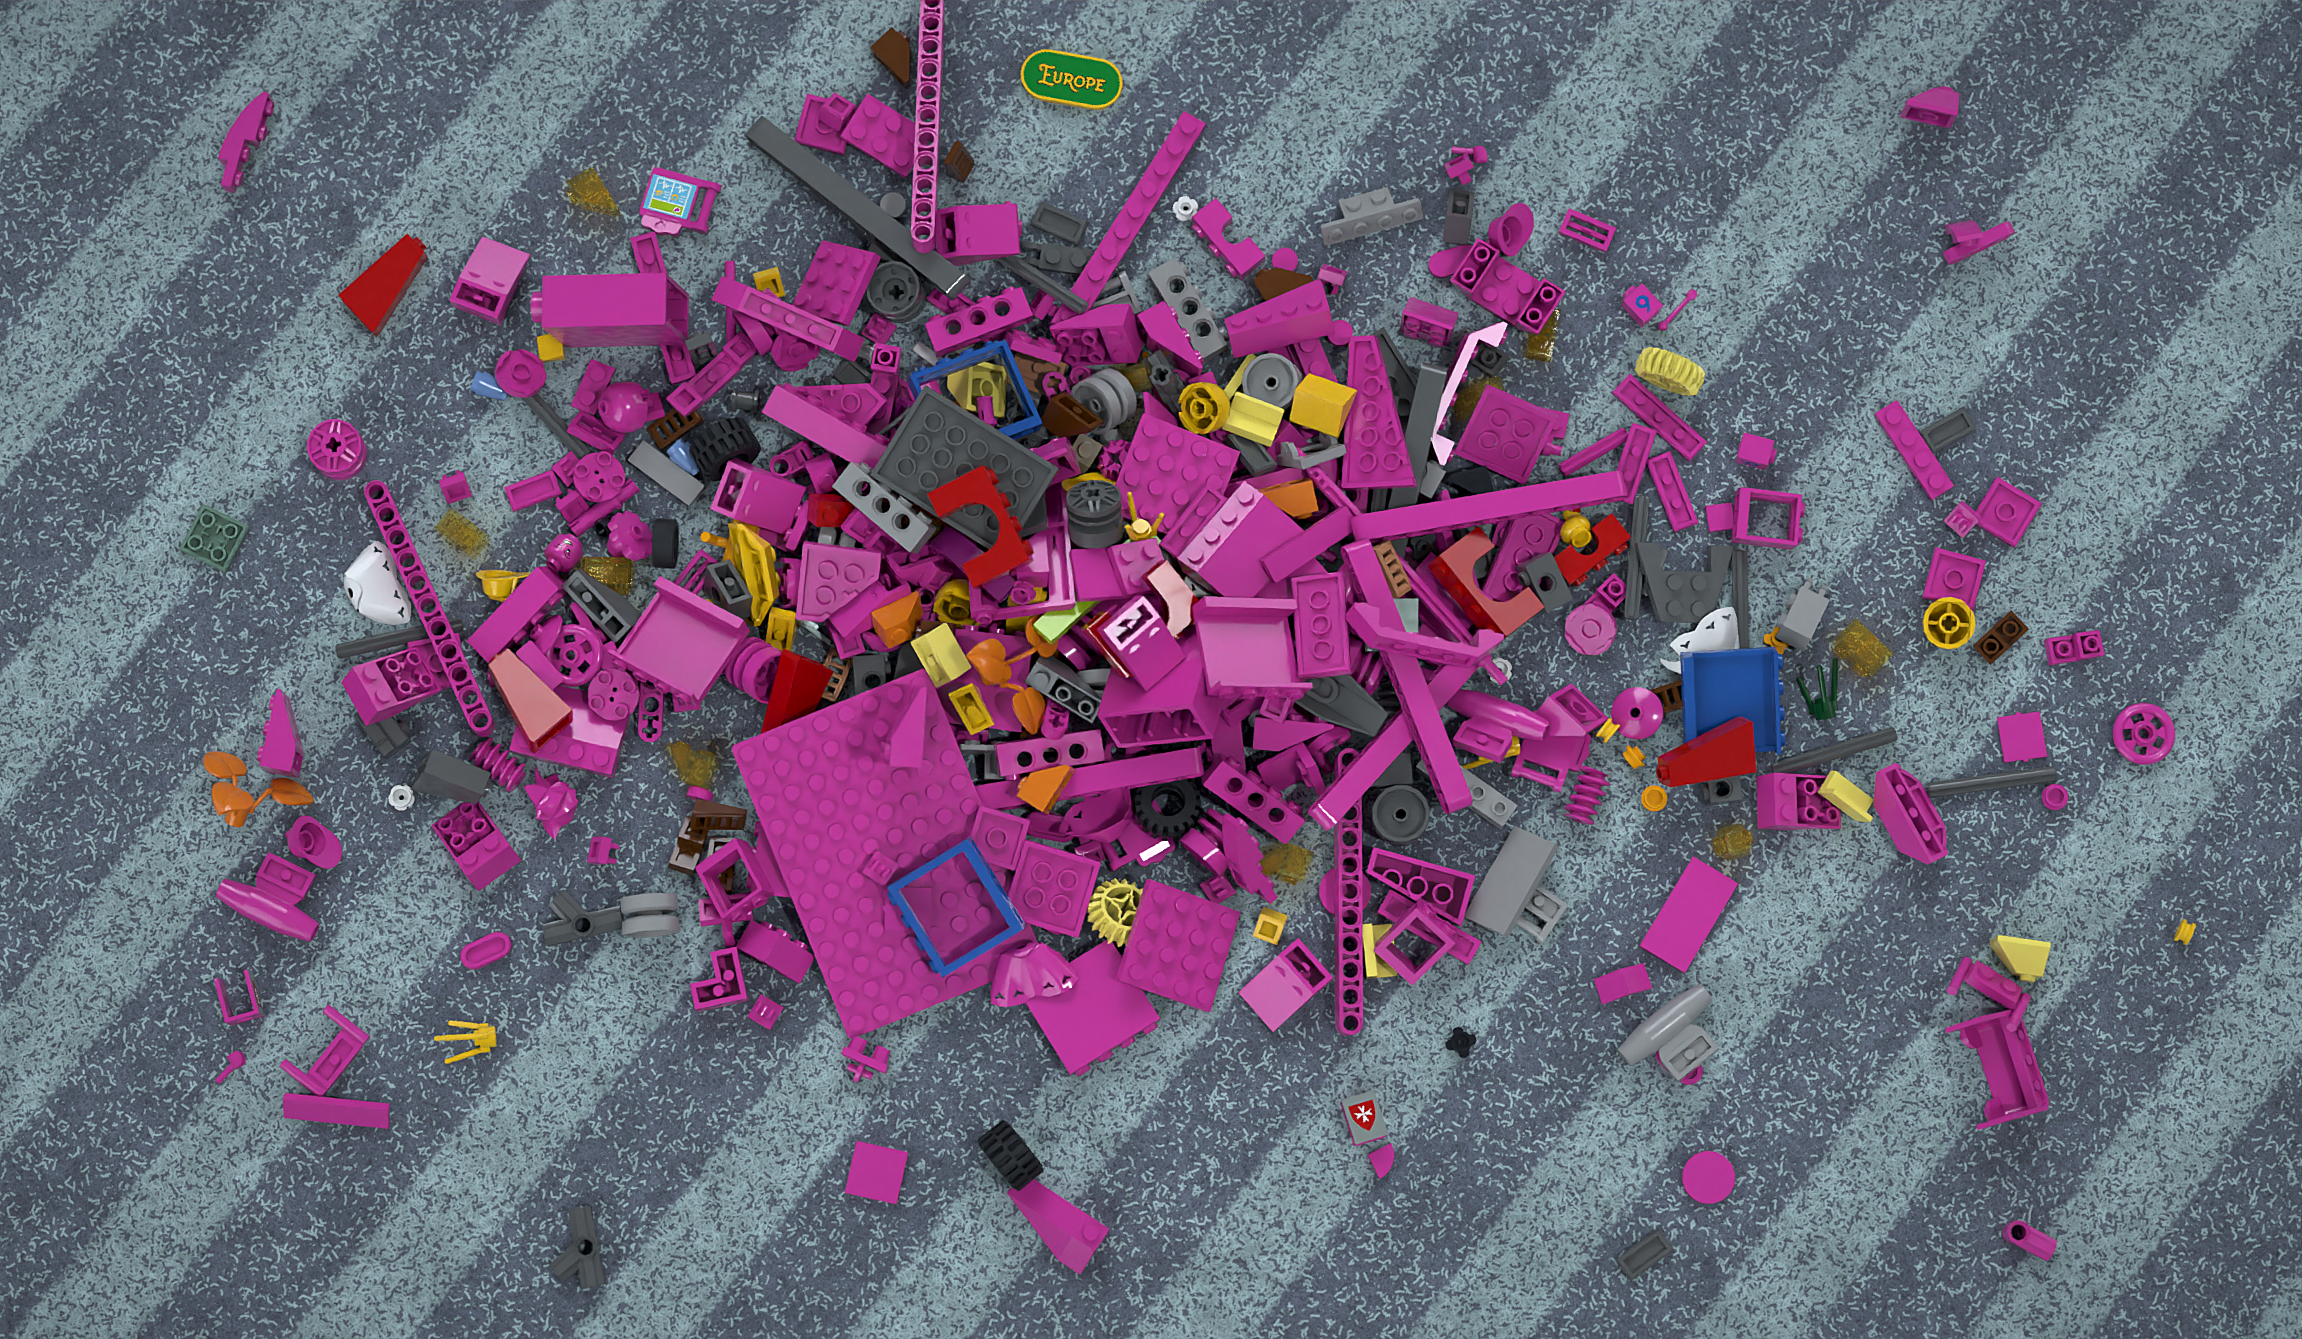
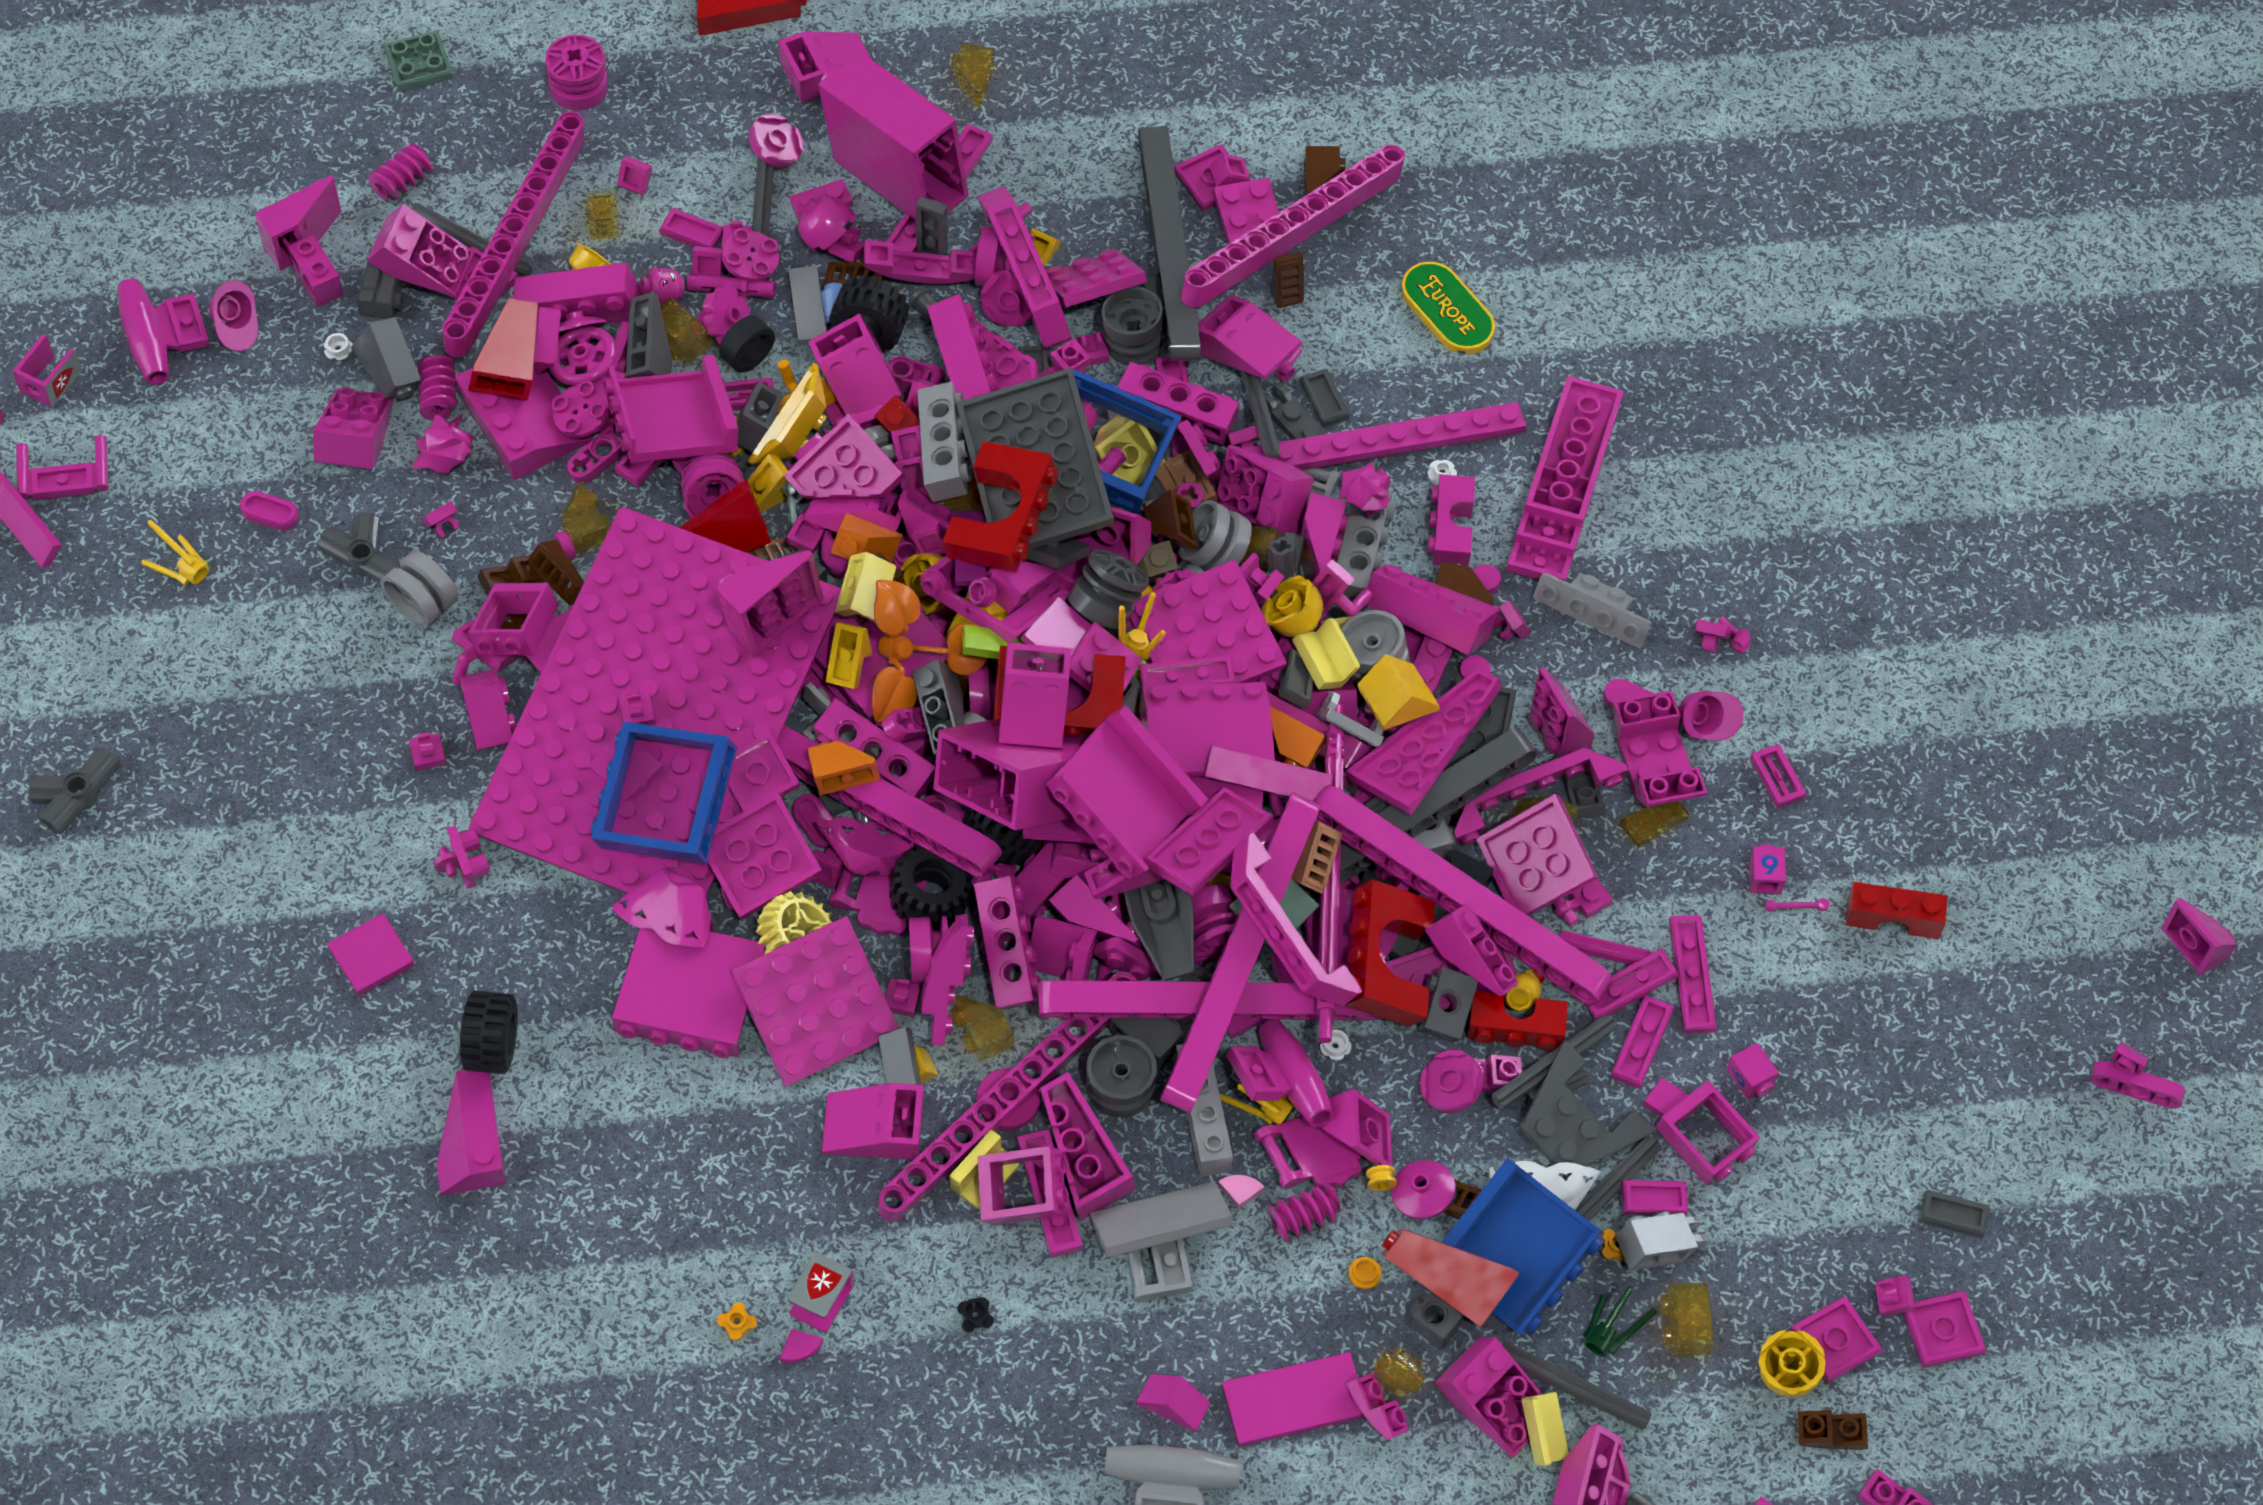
camera: 40 degrees right, 20 degrees down
(239, 803) = (210, 244): orange plant -> none
(302, 634) = (399, 171): none -> dark pink piece
(328, 759) = (315, 270): none -> dark pink brick
(375, 586) = (488, 189): white piece -> none
(487, 386) = (738, 127): medium blue cone -> none
(550, 348) = (819, 149): yellow slope -> none
(594, 434) = (783, 229): dark pink tile -> none
(671, 201) = (1030, 130): piece -> none
(727, 987) = (418, 697): dark pink brick -> none
(1168, 279) = (1366, 488): none -> dark pink hair
(1172, 408) = (1264, 584): none -> dark pink tile
(1218, 369) = (1332, 583): none -> dark pink plate
(1262, 932) = (899, 1057): none -> tile
(1267, 140) = (1565, 479): none -> dark pink slope
(1326, 1186) = (737, 1331): none -> light orange plate
(1458, 217) = (1671, 668): dark grey slope -> none
(1529, 538) = (1468, 947): none -> dark pink slope
(1533, 815) = (1240, 1189): none -> bright pink tile
(1634, 756) = (1382, 1221): light orange plate -> none
(1670, 371) = (1738, 936): light yellow gear -> none
(1740, 259) = (1874, 904): none -> red arch
(1747, 877) = (1384, 1417): none -> dark pink slope
(1772, 589) = (1653, 1197): none -> dark pink tile
(1914, 450) = (1905, 1202): dark pink plate -> none

